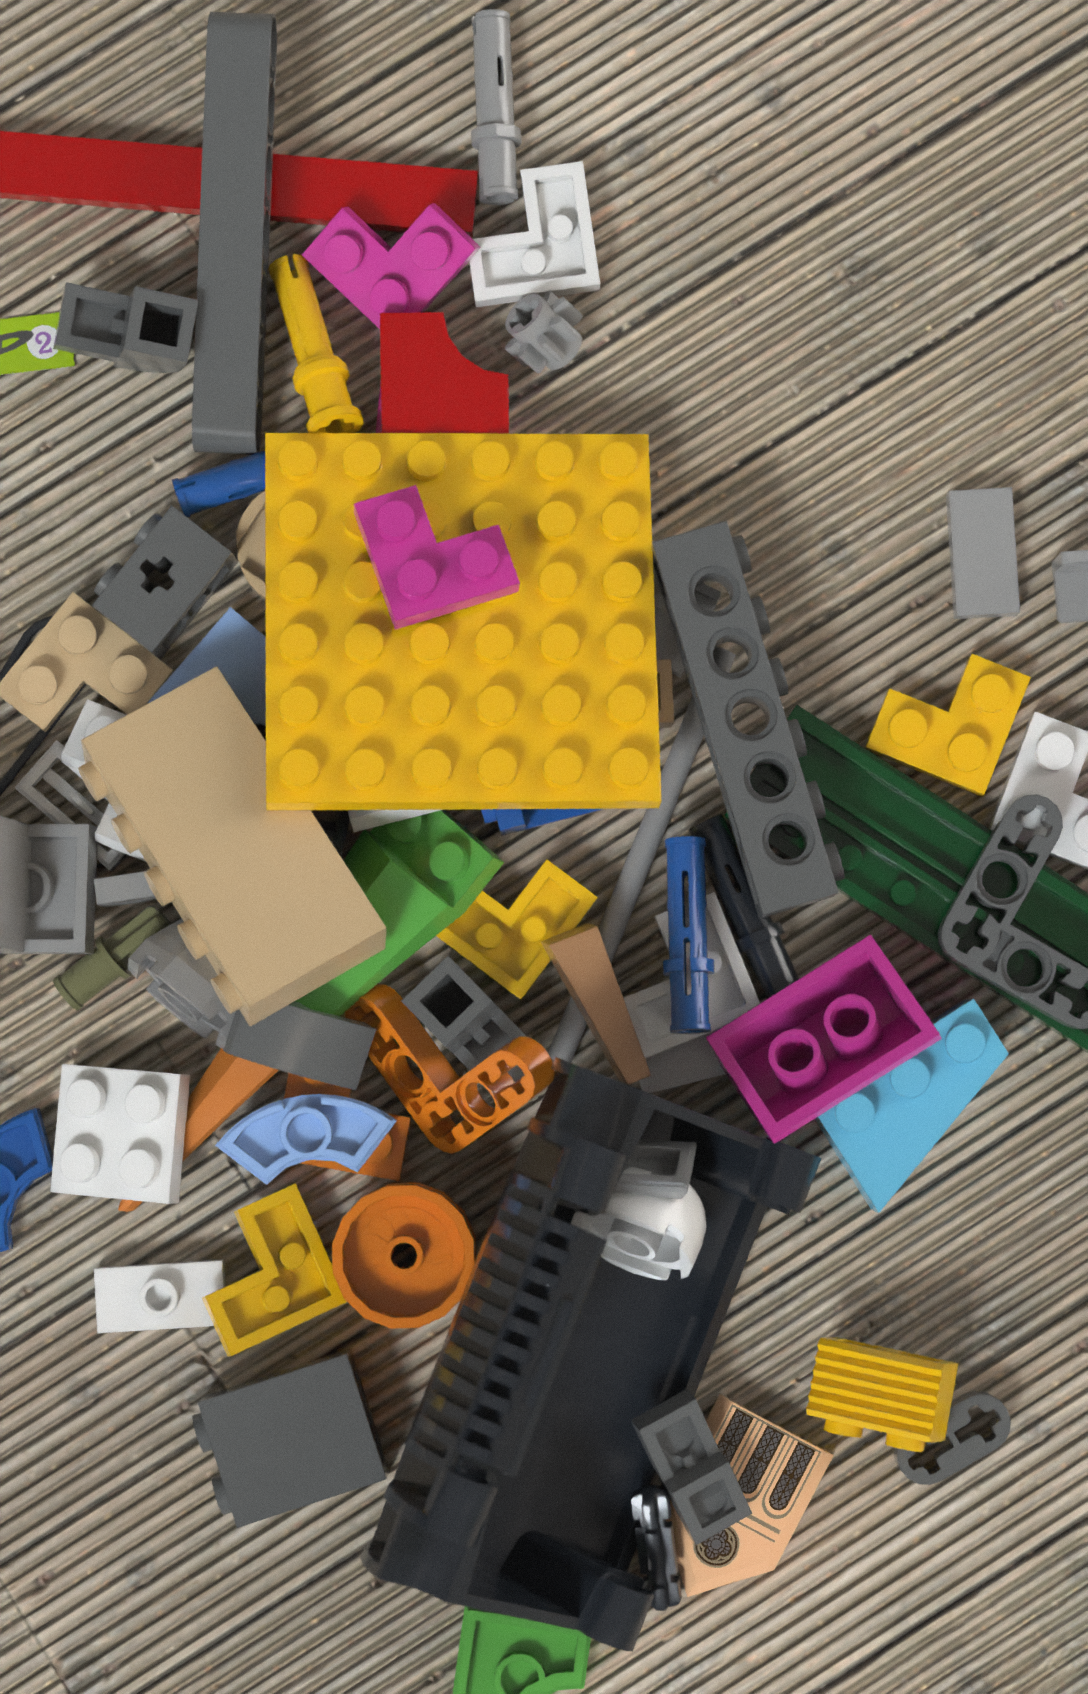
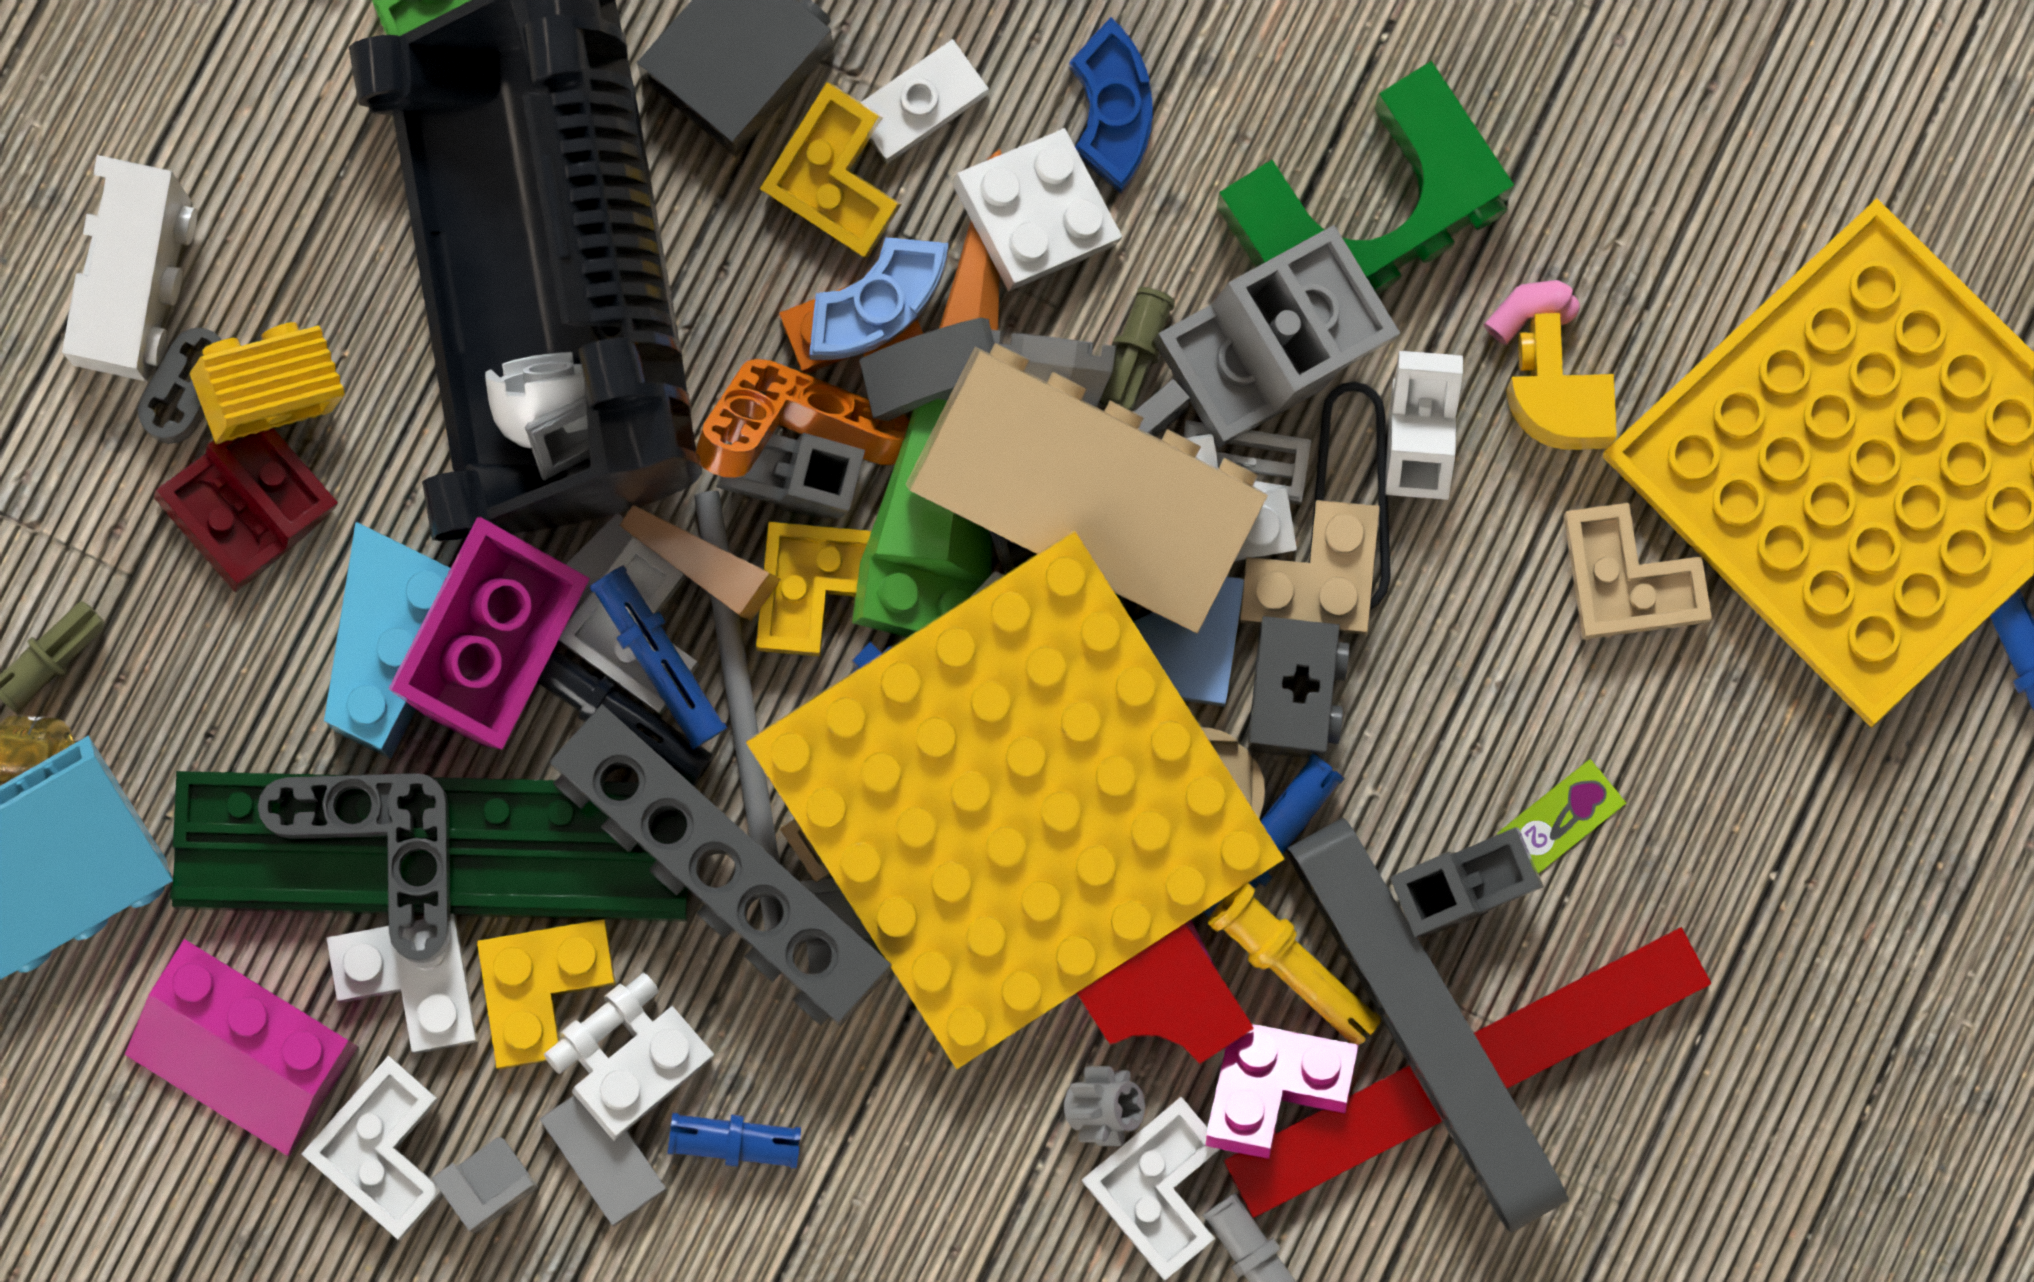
camera: 145 degrees right, 5 degrees down
(369, 1237) = (717, 219): orange wheel -> none
(425, 576) = (1064, 809): dark pink plate -> none
(656, 1545) = (380, 146): black axle -> none
(691, 1466) = (389, 226): dark grey slope -> none
(778, 1480) = (335, 232): tile -> none
(867, 495) = (734, 1140): none -> blue pin
(908, 600) = (642, 1070): none -> white plate
(943, 1568) = (129, 270): none -> white wedge
(959, 1298) = (245, 504): none -> dark red slope

